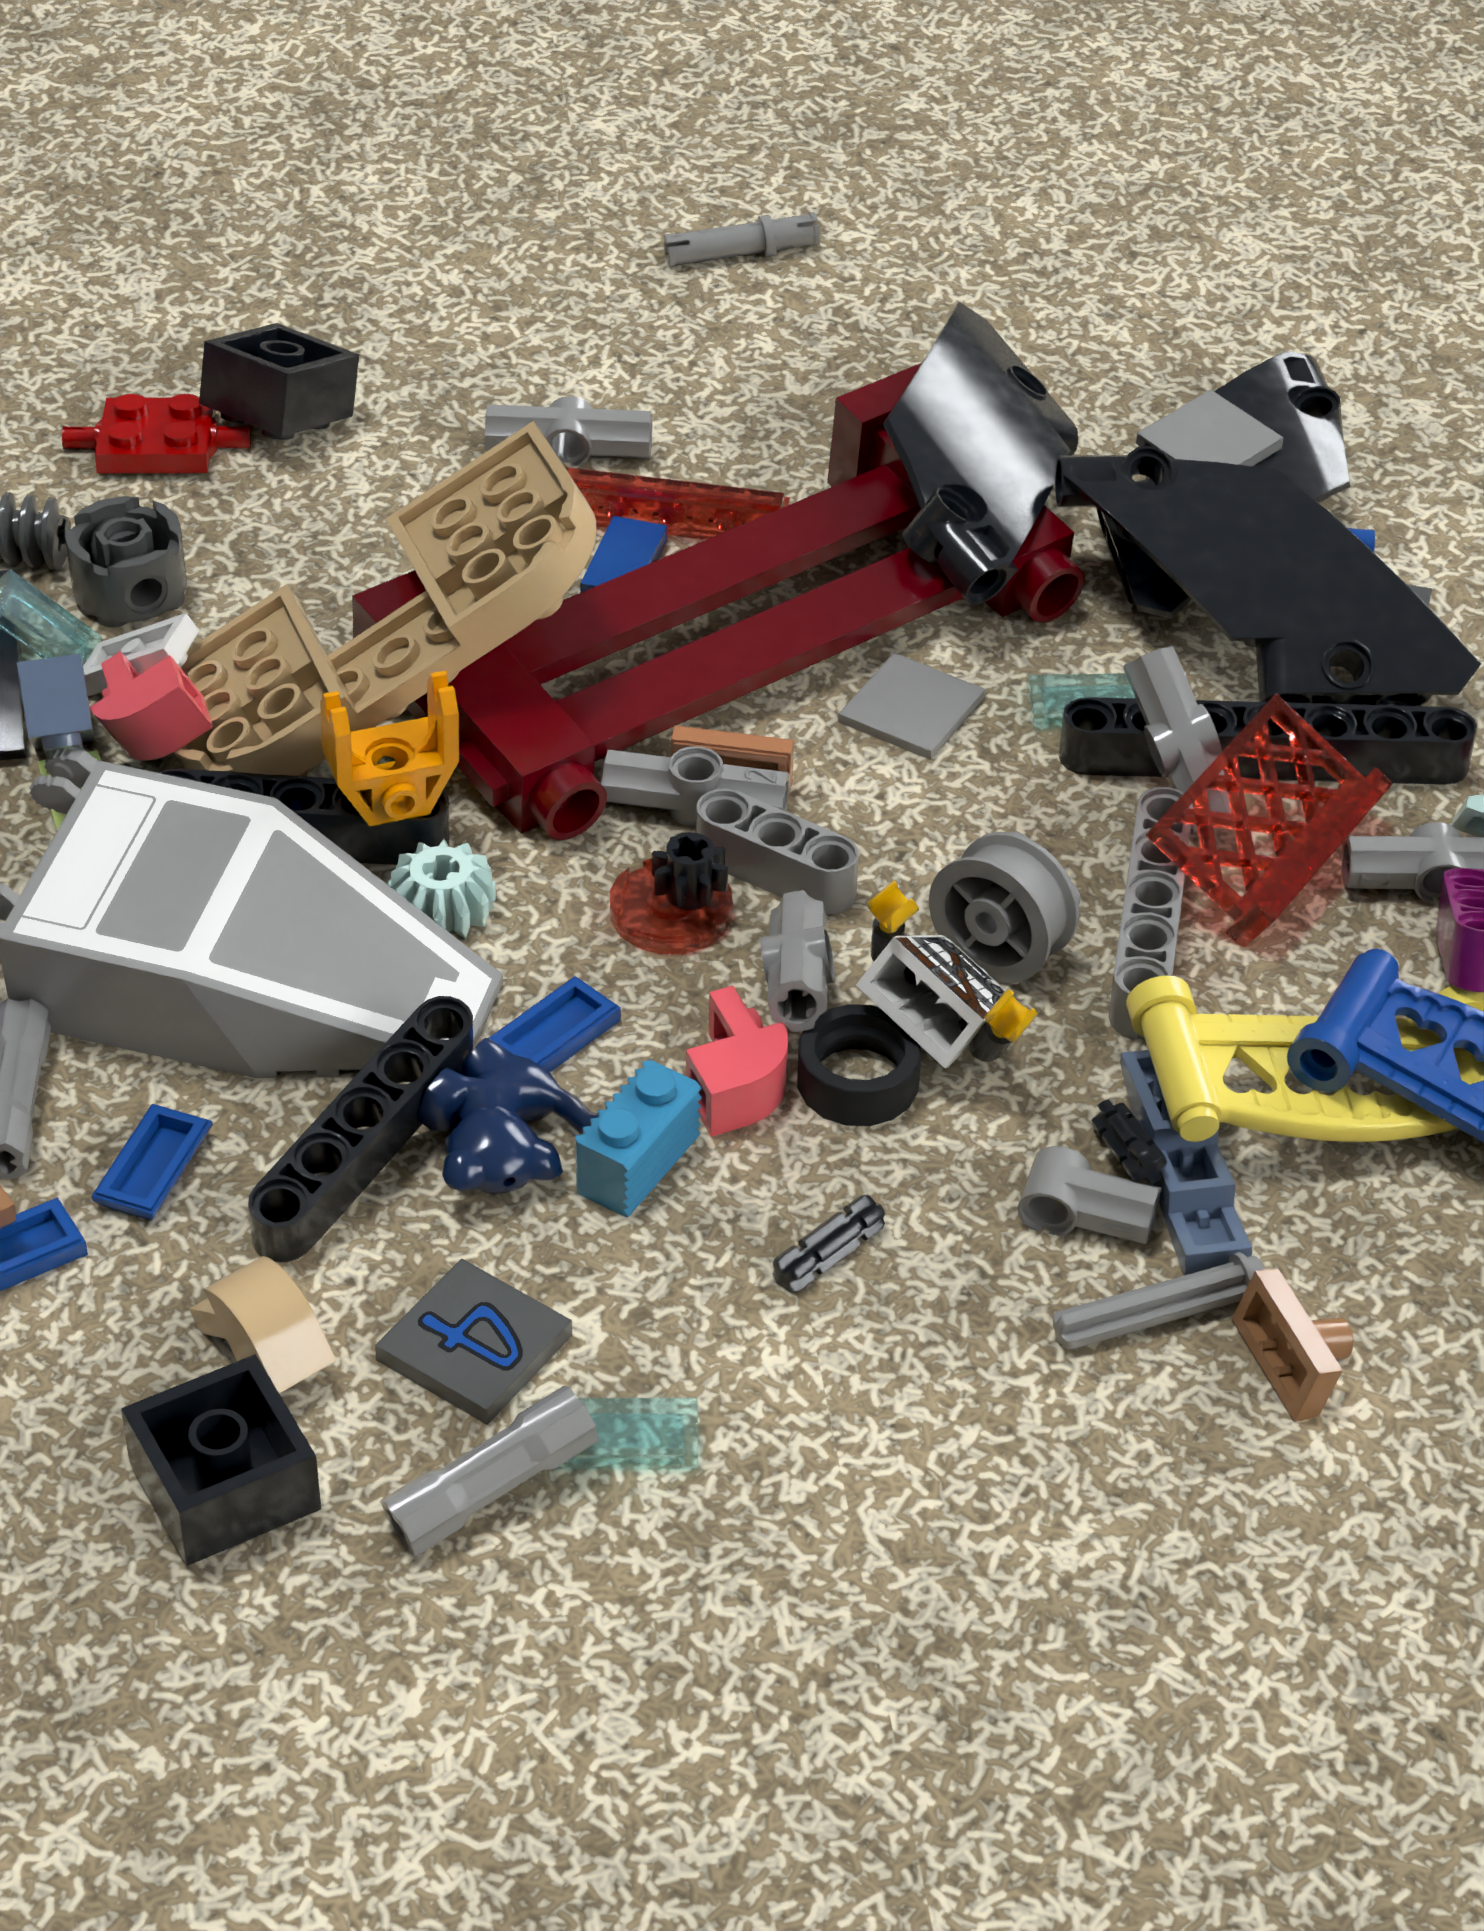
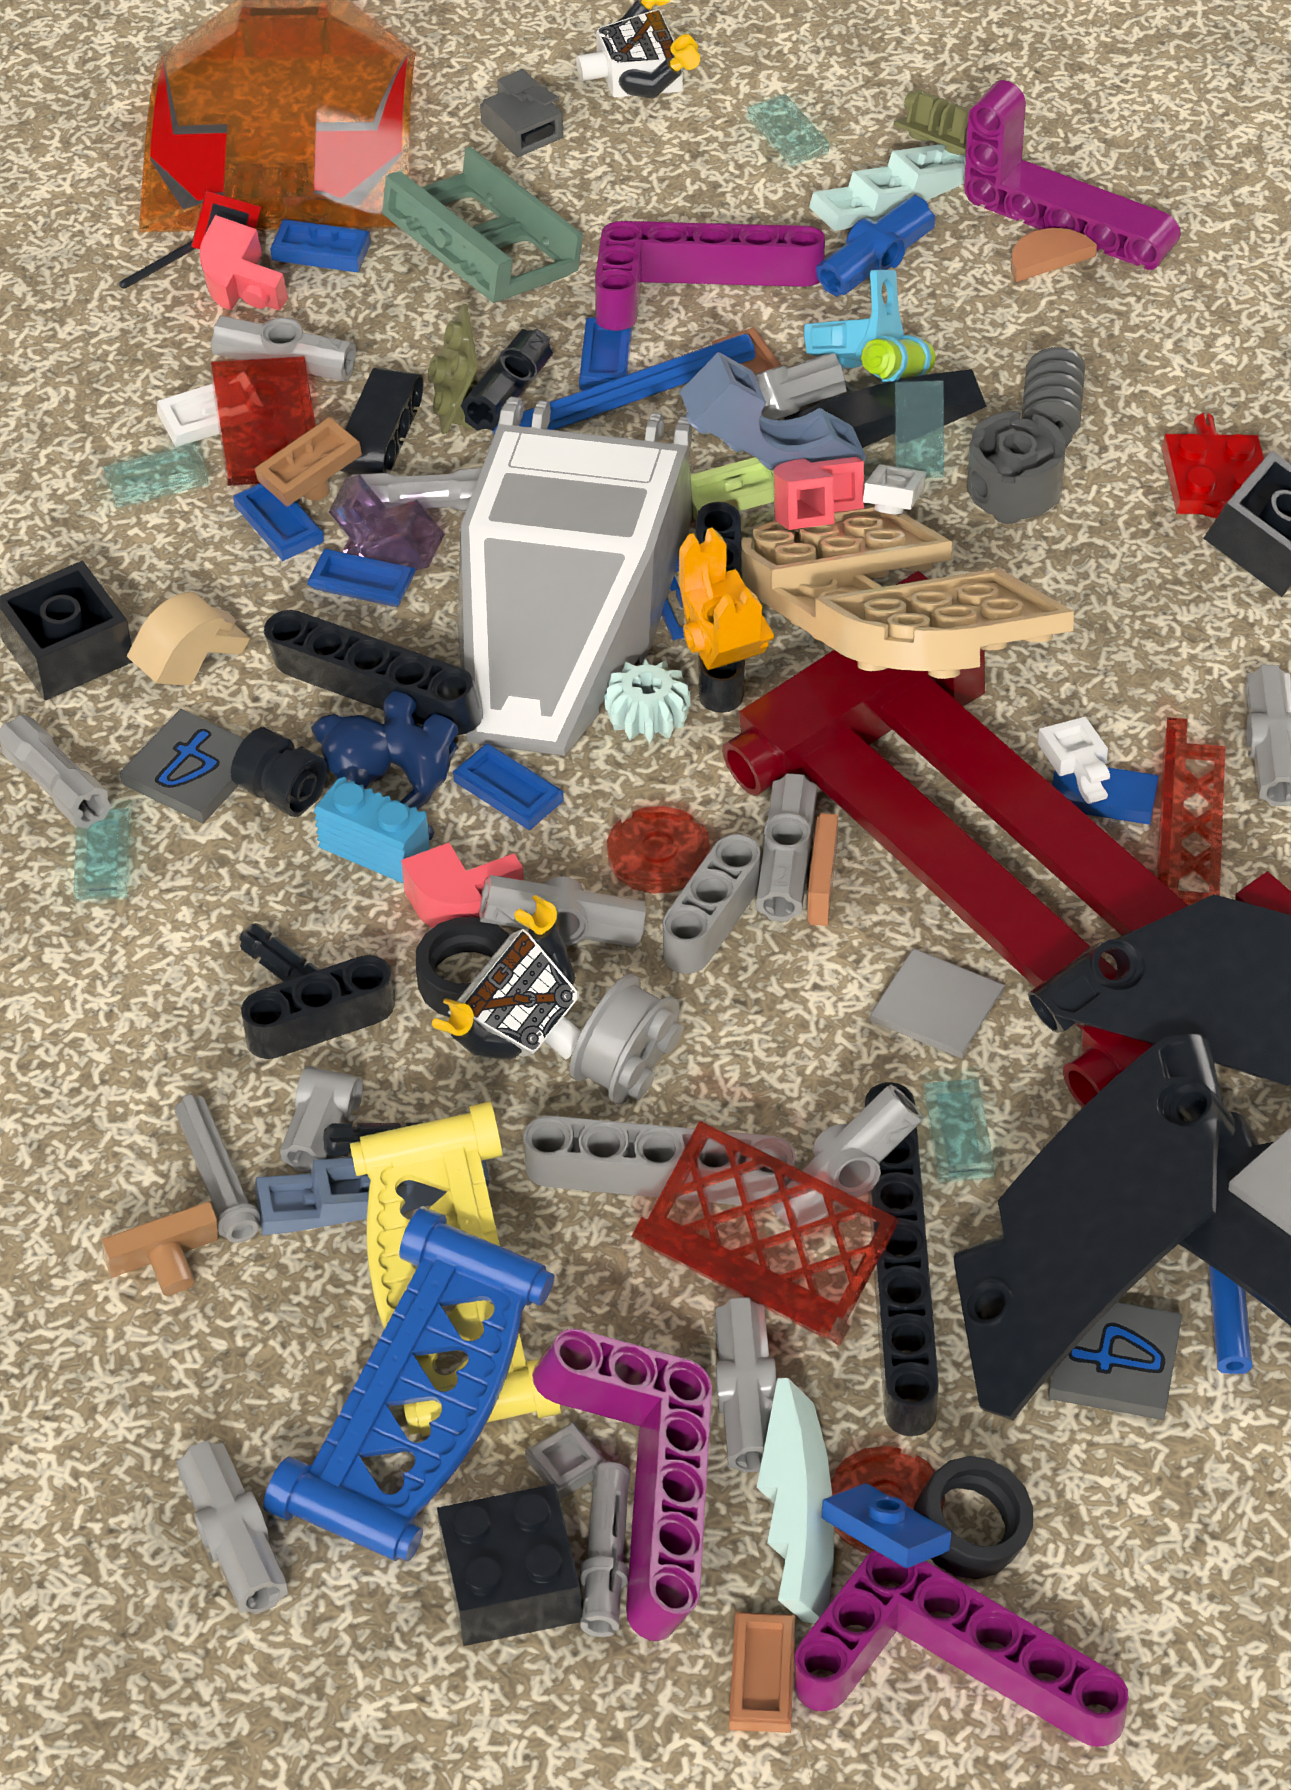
camera: 90 degrees right, 5 degrees up
(94, 1116) = (392, 535): none -> clear purple brick
(523, 1226) = (275, 770): none -> black wheel
(616, 548) = (1077, 750): none -> white plate
(689, 871) = (660, 836): black gear -> none
(921, 1197) = (318, 1006): none -> black beam

